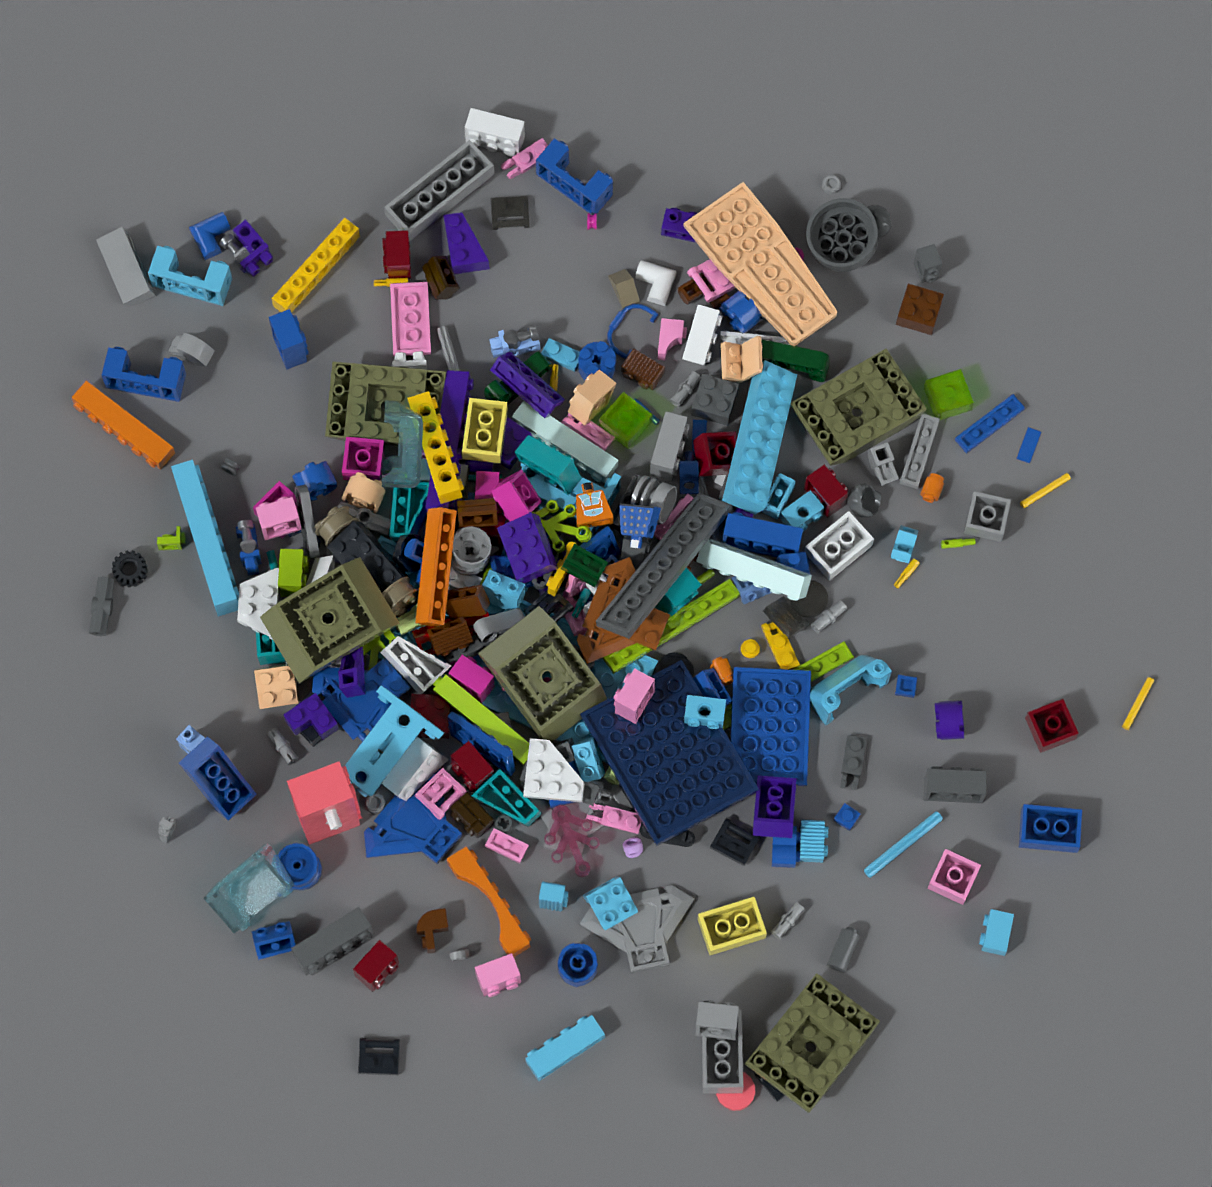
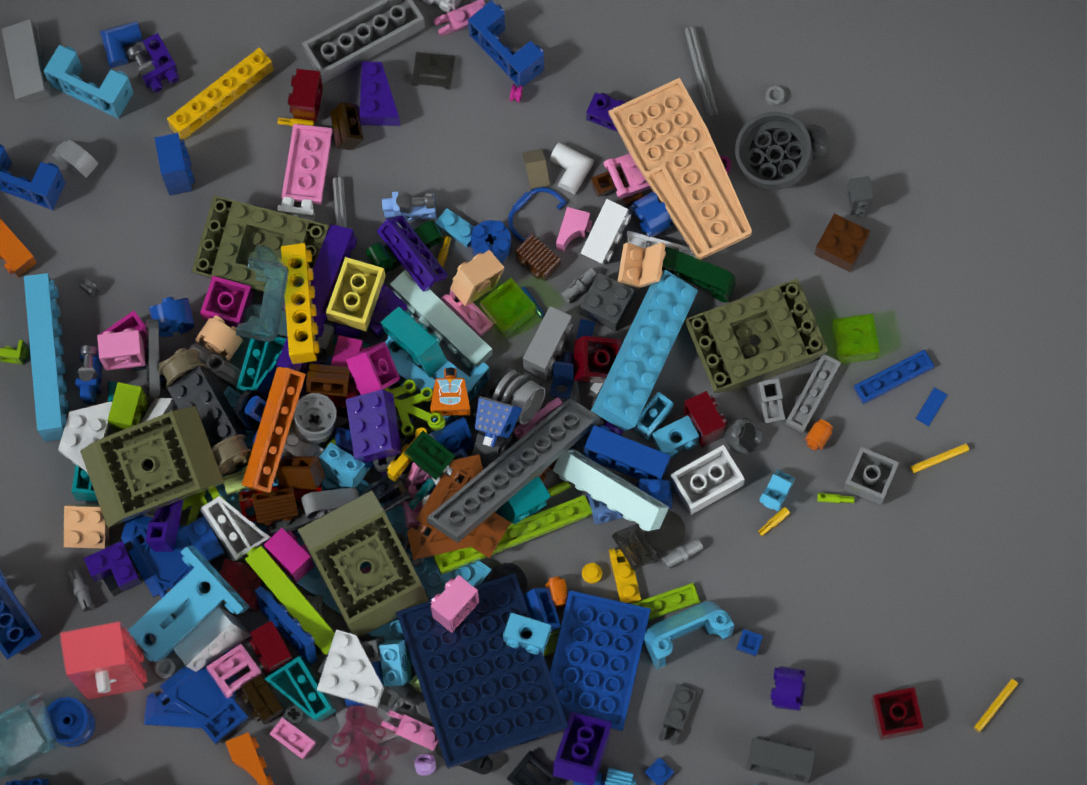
camera: 15 degrees right, 0 degrees up
(759, 173) = (701, 71): none -> light grey axle

